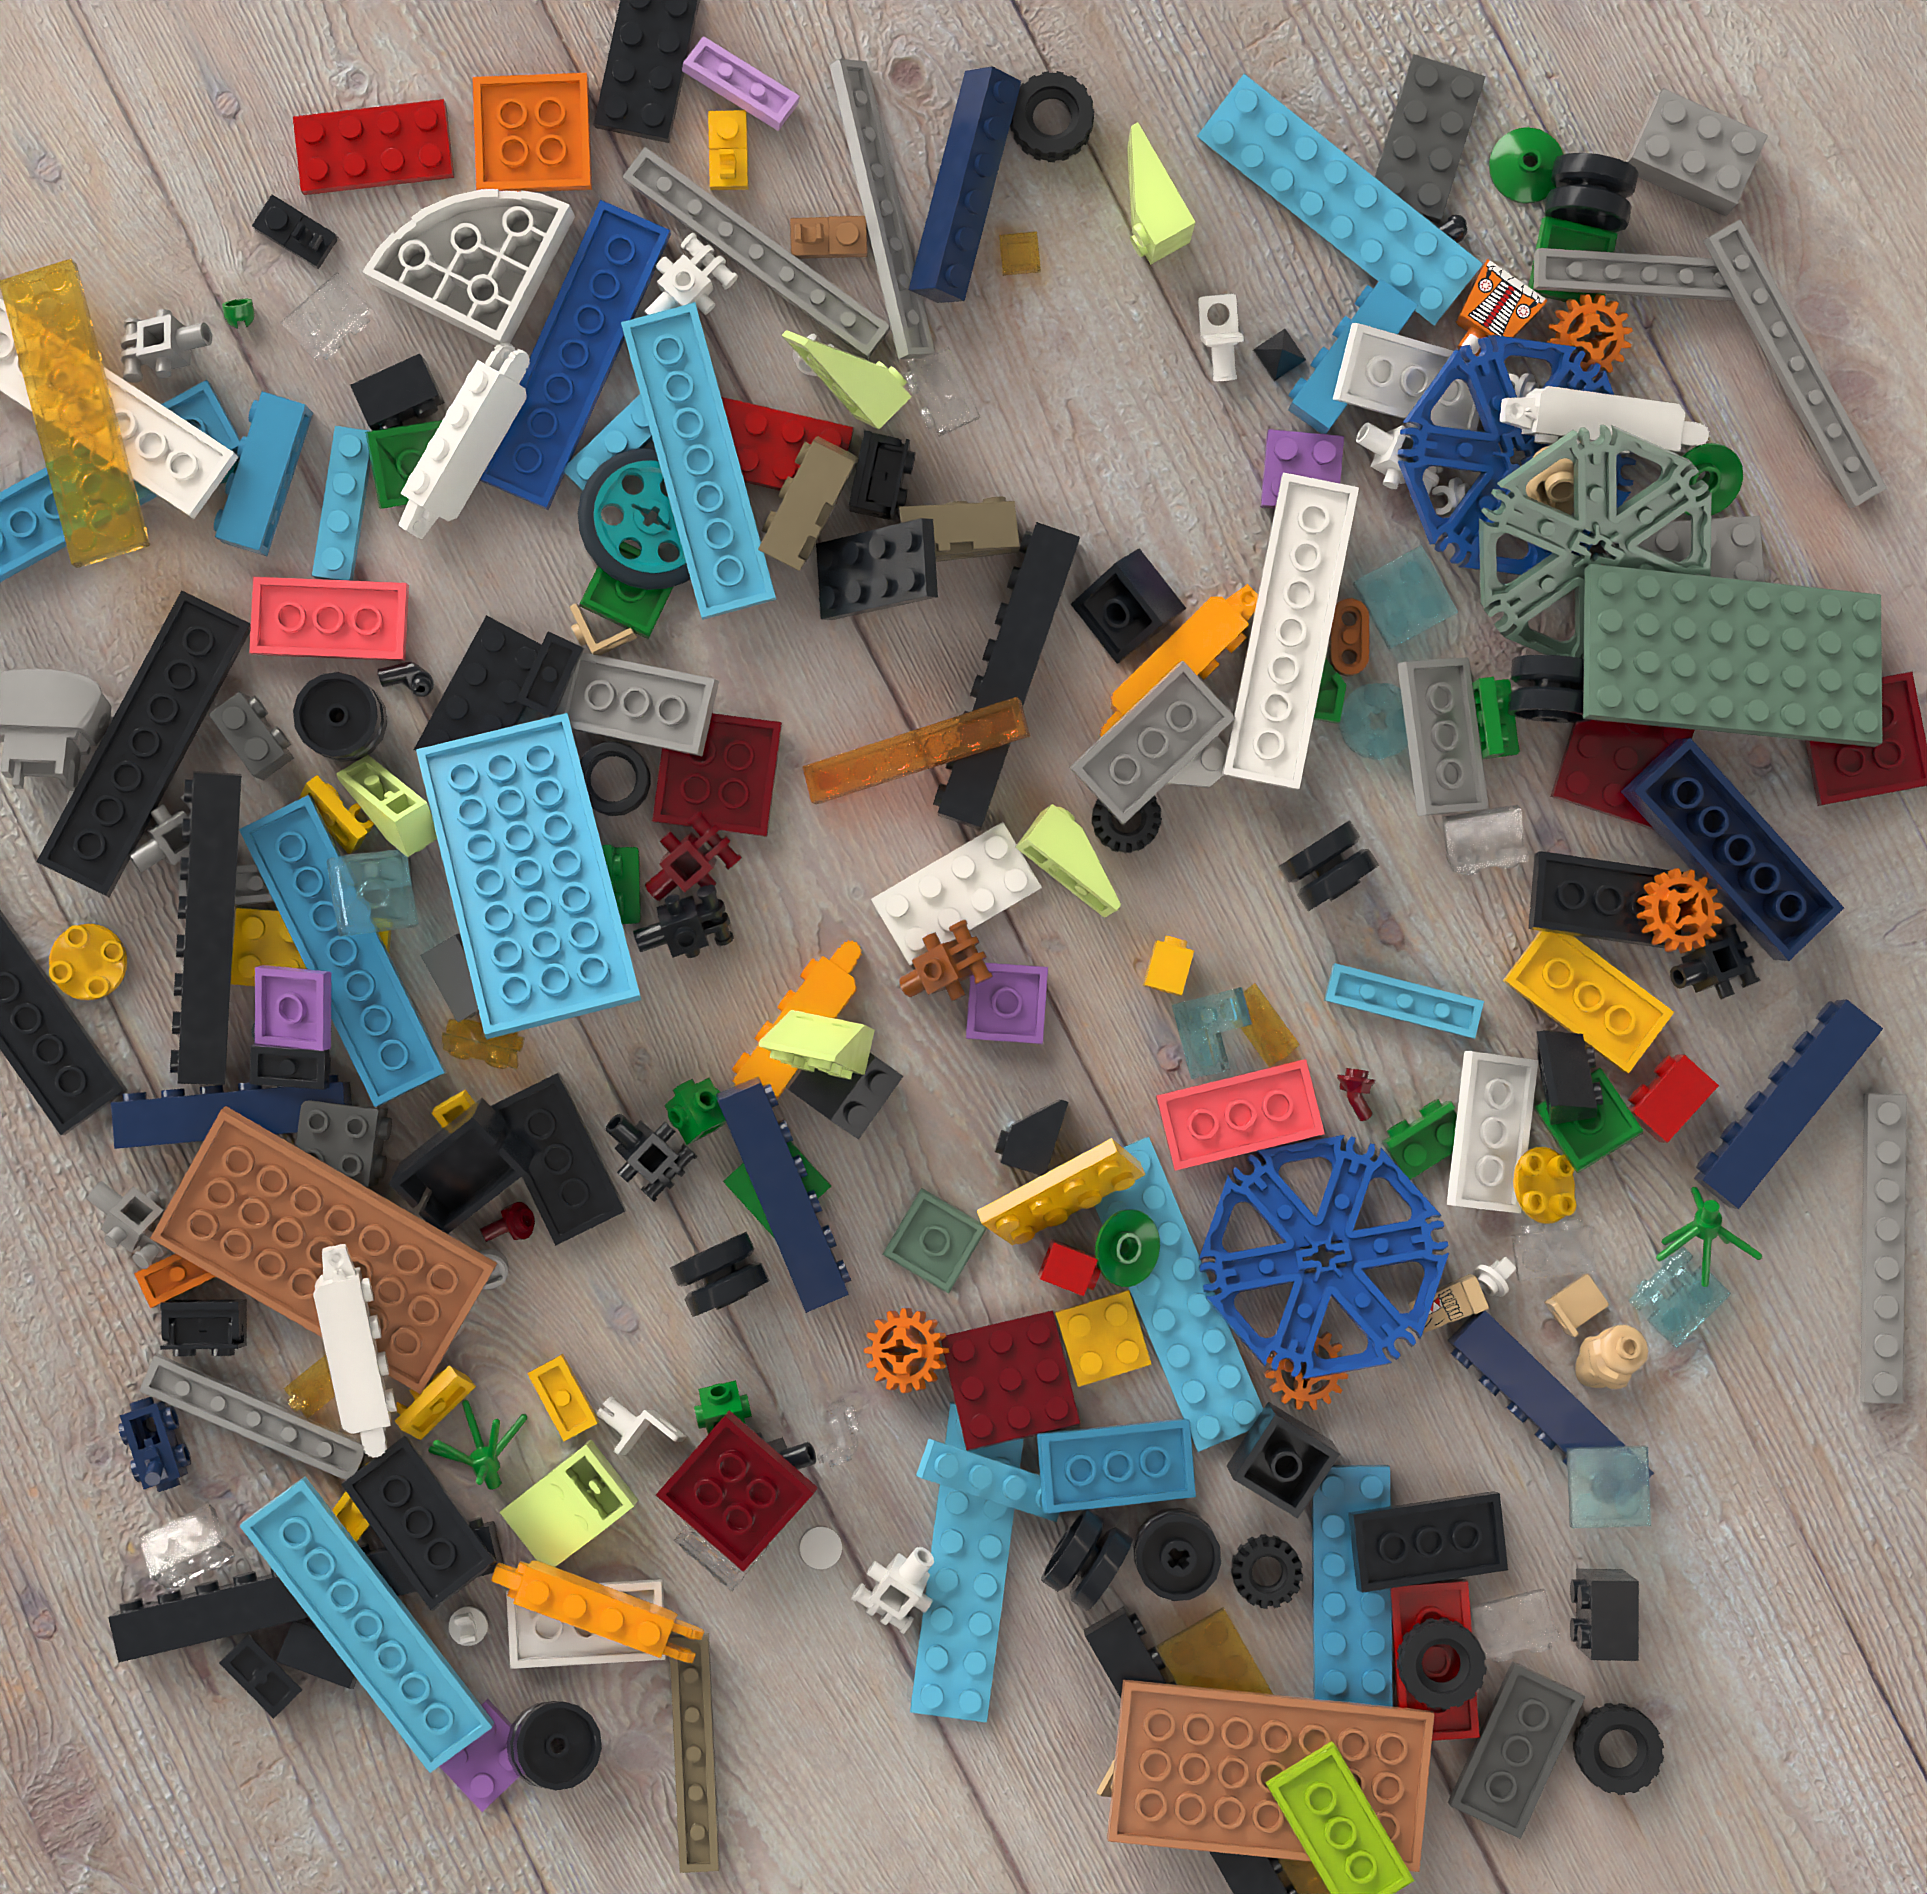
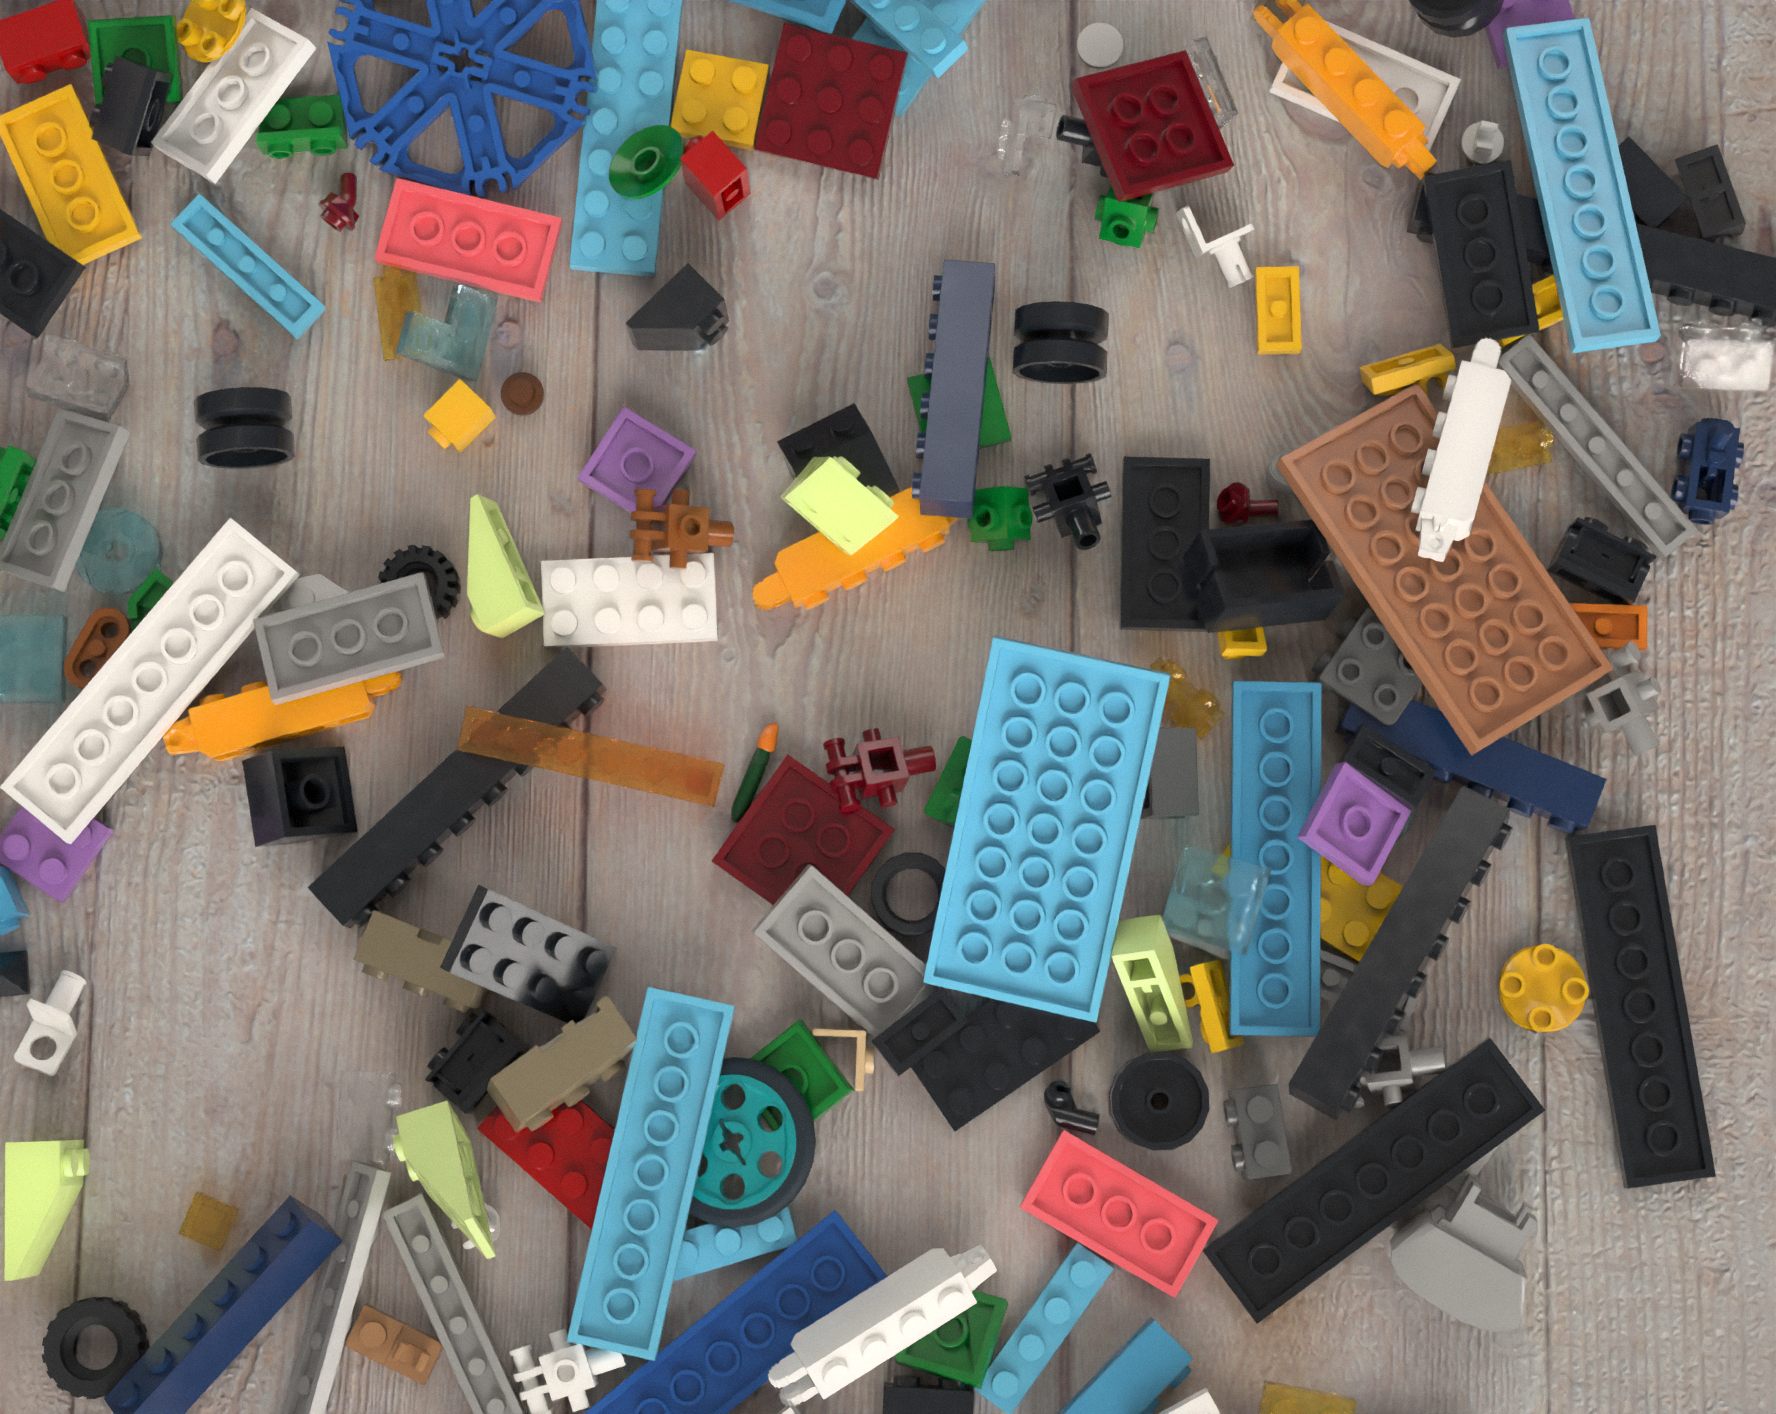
camera: 150 degrees left, 5 degrees down
(484, 1458) = (1385, 290): green plant -> none
(569, 1506) = (1323, 202): yellowish green slope -> none
(686, 925) = (913, 705): black piece -> none
(786, 811) = (765, 745): none -> dark green piece
(906, 1335) = (932, 188): orange gear -> none
(935, 1240) = (833, 275): sand green tile -> none
(1061, 1192) = (692, 245): yellow plate -> none
(1129, 1013) = (522, 393): none -> reddish brown plate

